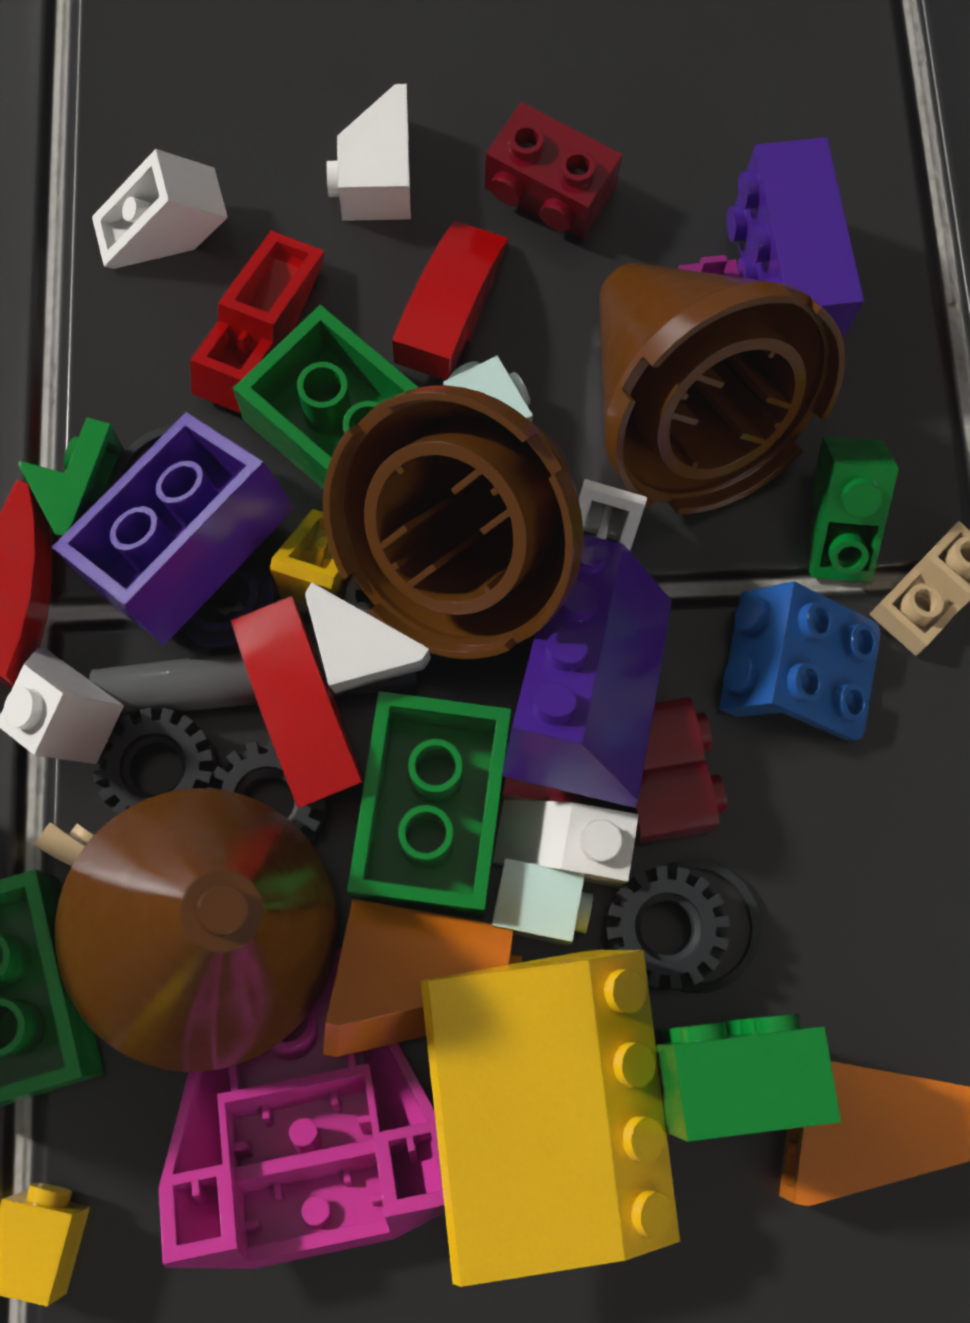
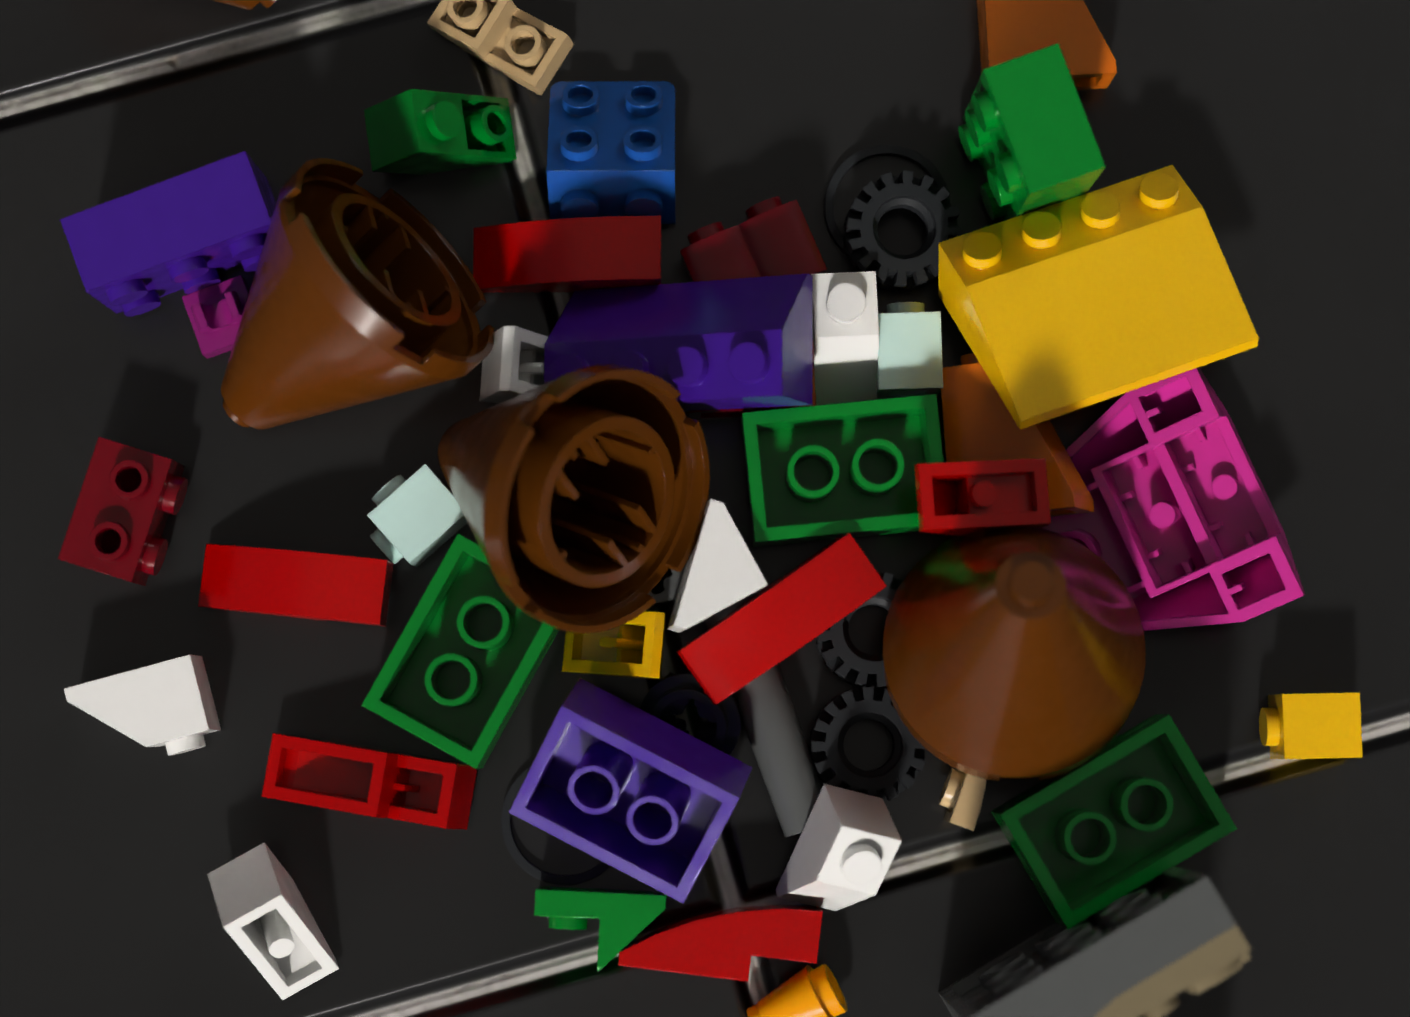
camera: 100 degrees left, 10 degrees up
(360, 922) = (982, 495): none -> red slope
(706, 602) = (568, 254): none -> red slope

